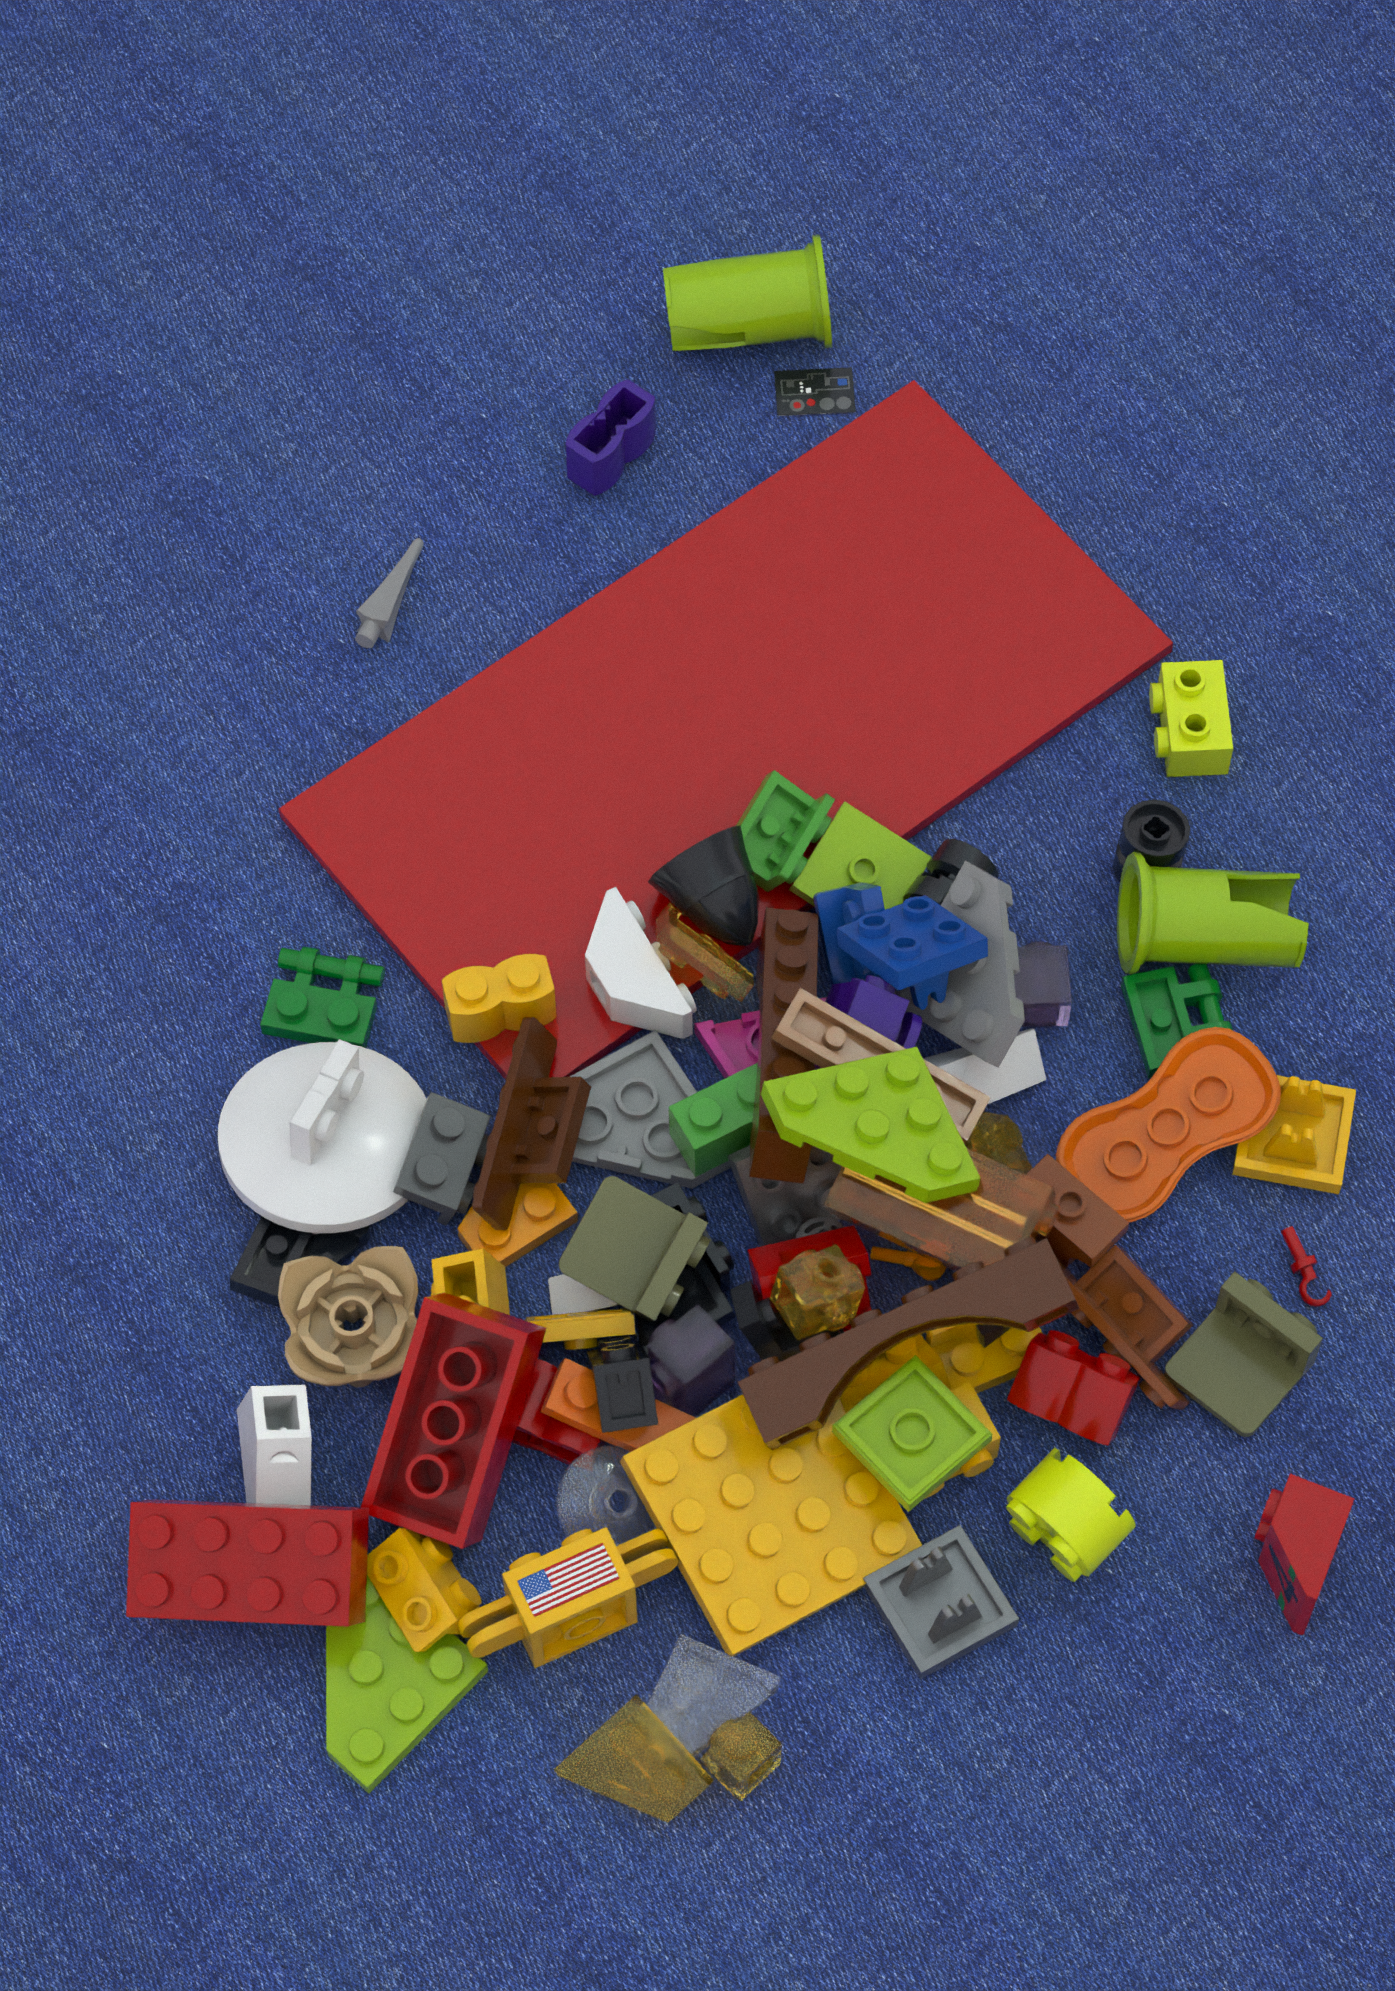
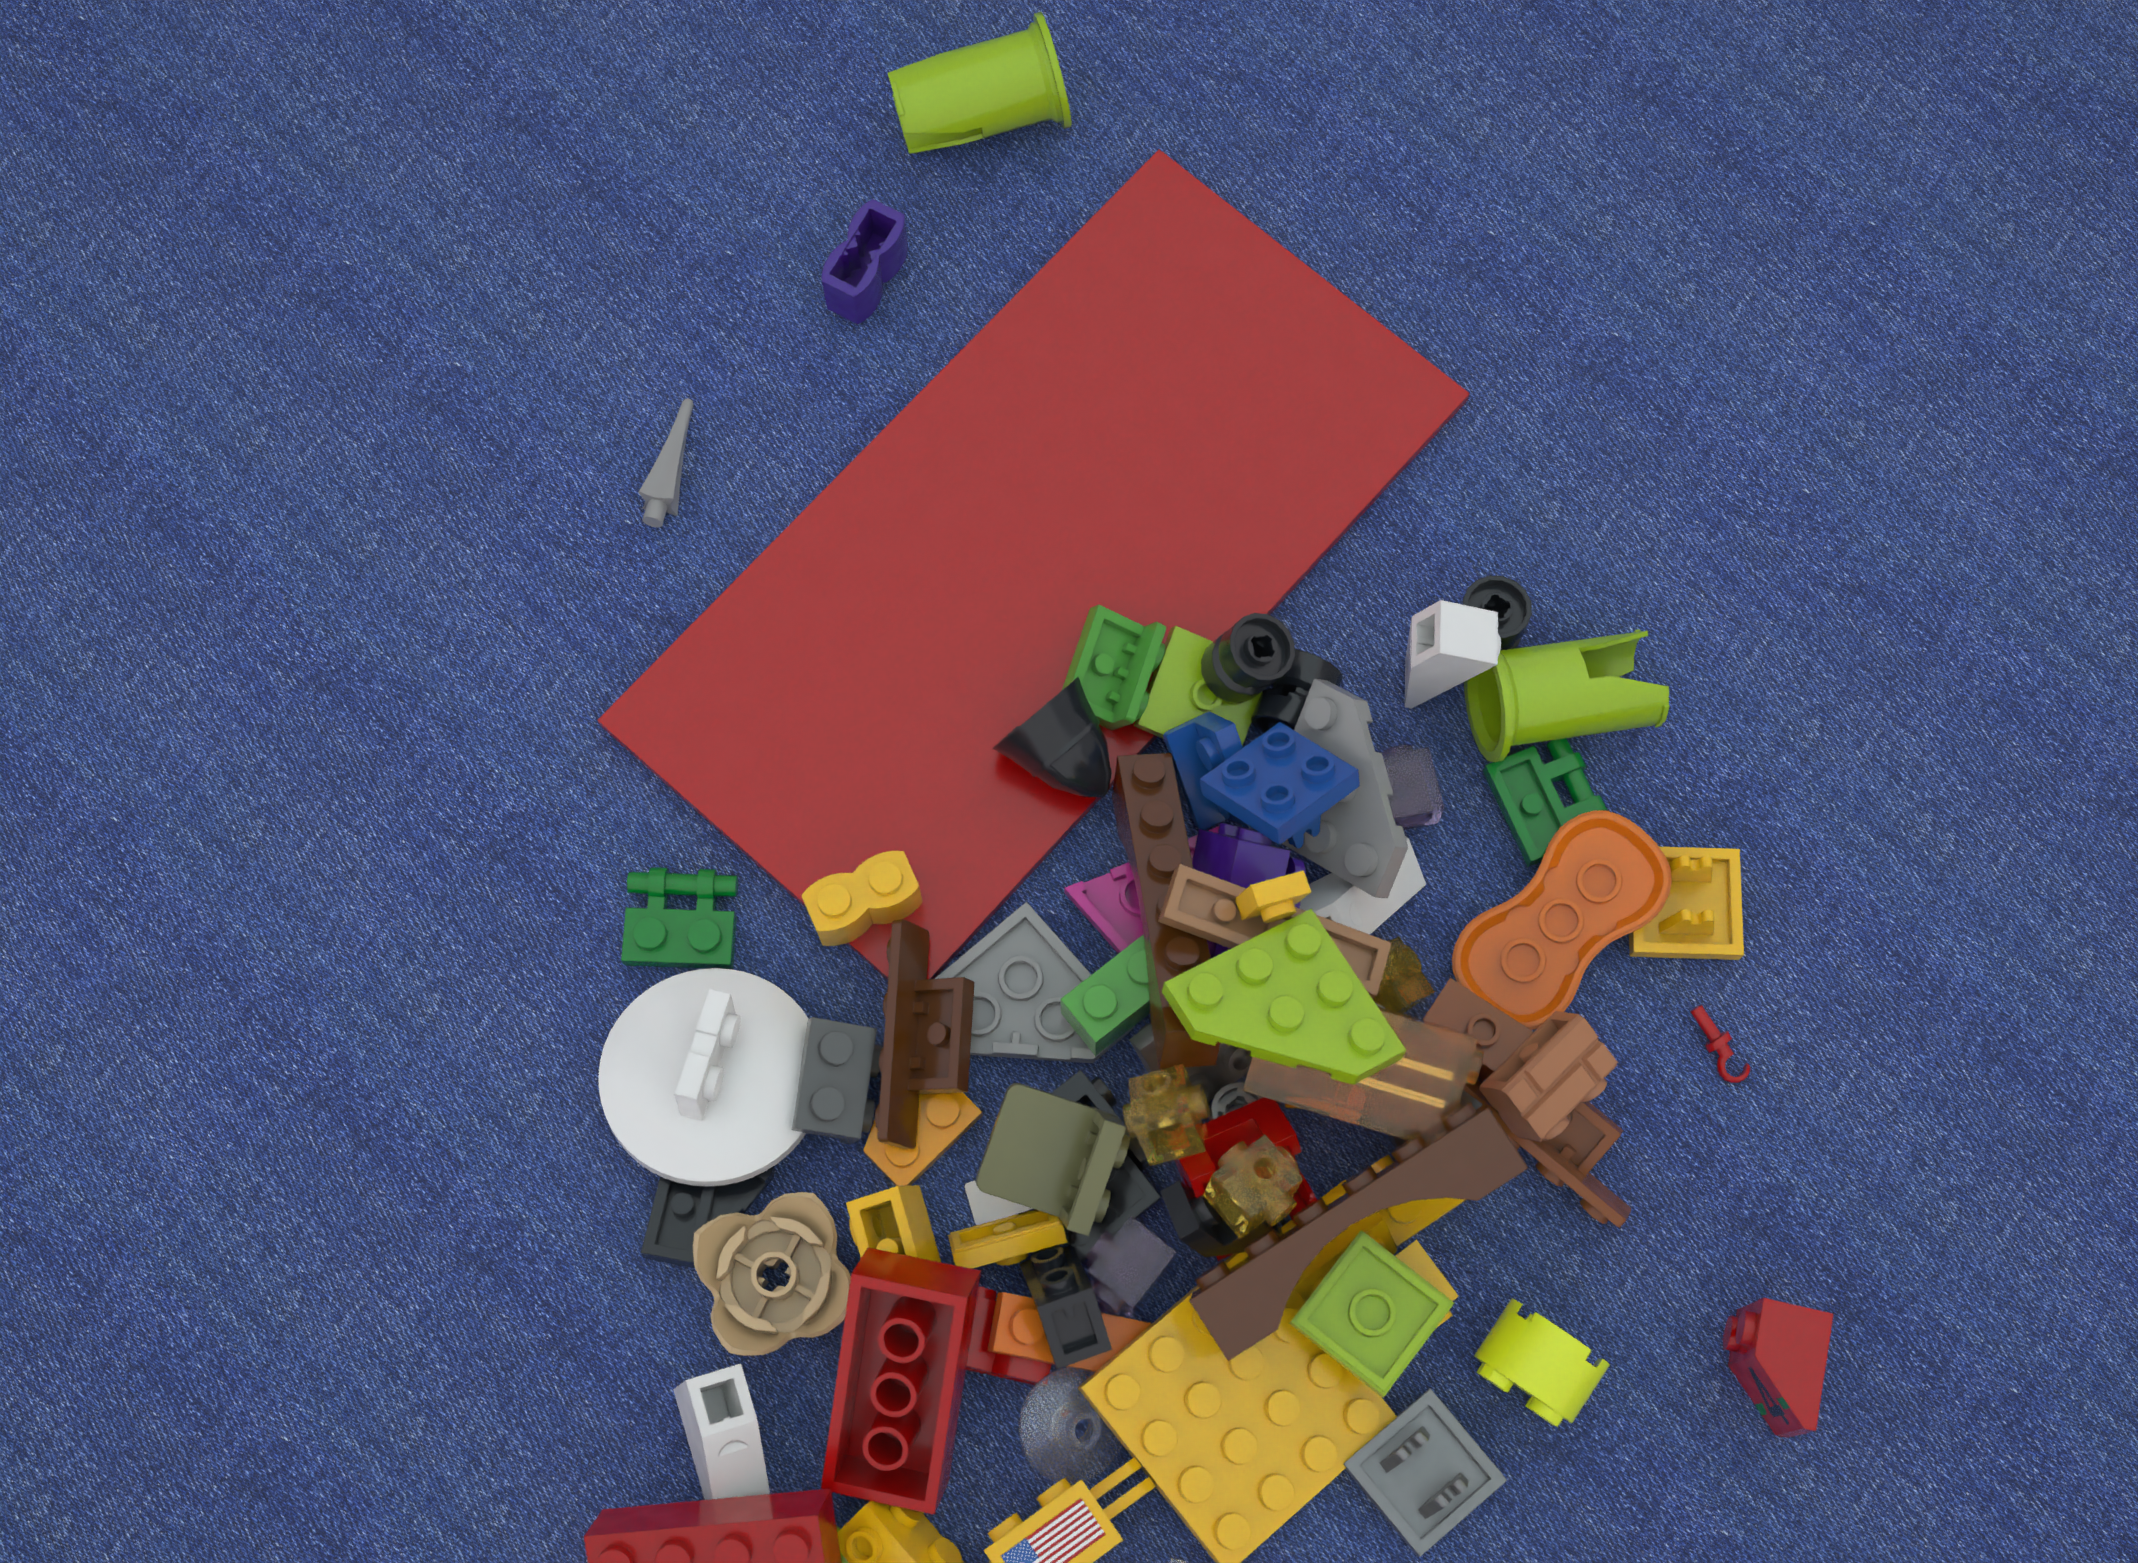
camera: 10 degrees left, 10 degrees up
(633, 974) = (993, 846): white slope -> none
(683, 945) = (1062, 817): clear yellow wing -> none
(748, 1217) = (1166, 1114): none -> clear yellow brick
(814, 391) = (1060, 175): black sticker -> none
(881, 1027) = (1273, 898): none -> yellow plate
(906, 836) = (1248, 658): none -> black wheel
(1074, 1387) = (1522, 1226): red brick -> none
(1097, 851) = (1447, 648): none -> white slope
(1124, 1251) = (1549, 1077): none -> nougat brick
(1193, 718) = (1505, 473): neon yellow brick -> none
(1244, 1356) = (1679, 1156): olive bracket -> none

